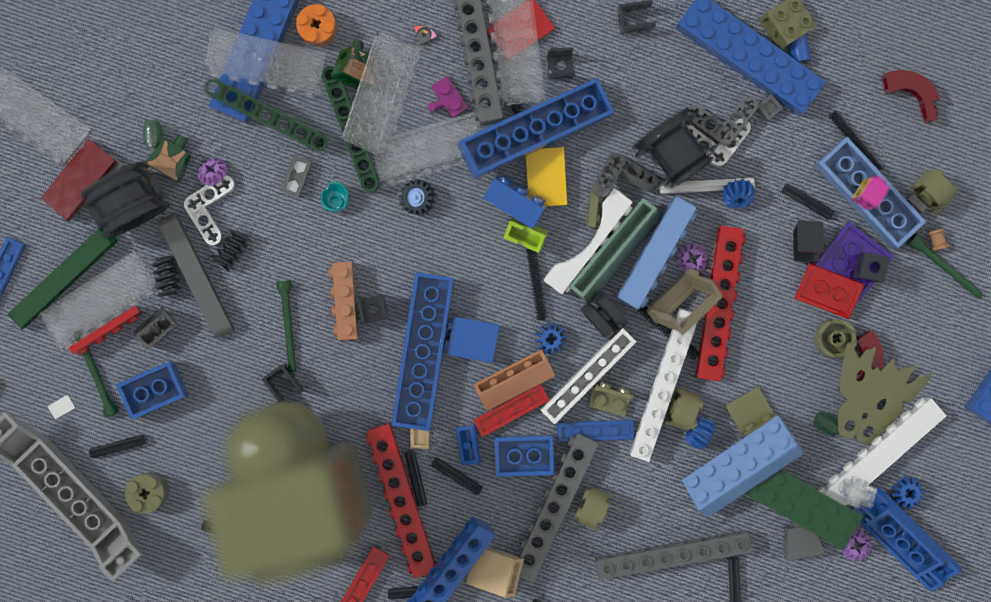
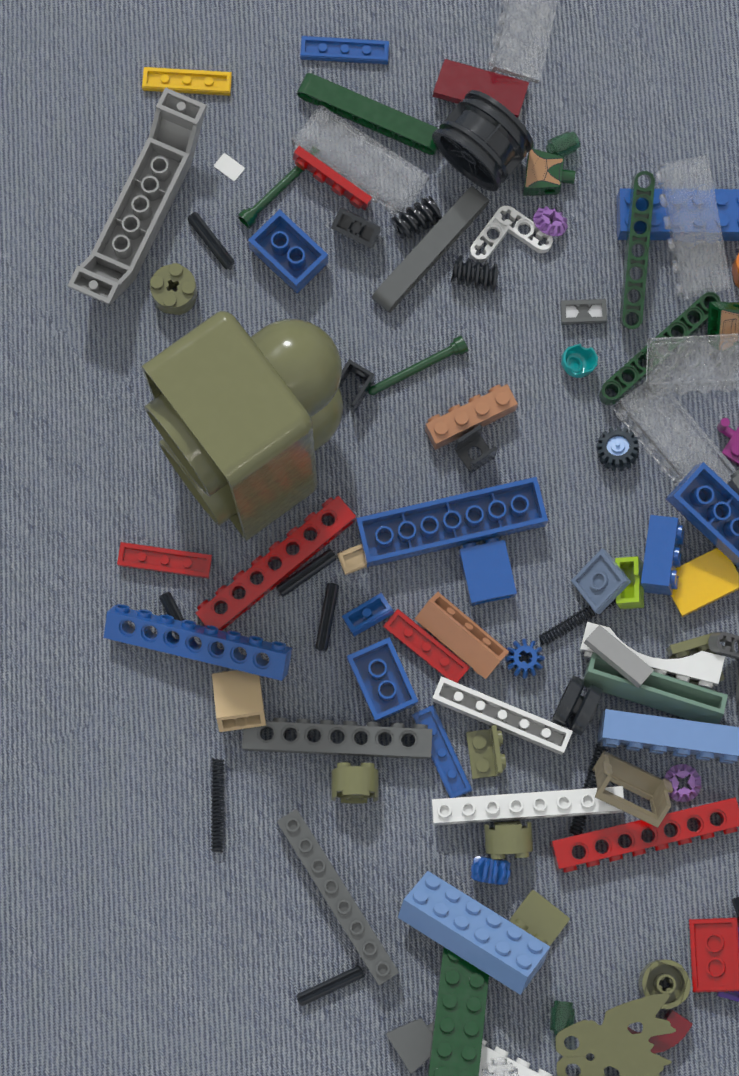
camera: 70 degrees right, 10 degrees down
(516, 256) = (600, 581): none -> sand blue tile
(581, 268) = (618, 656): none -> light grey tile

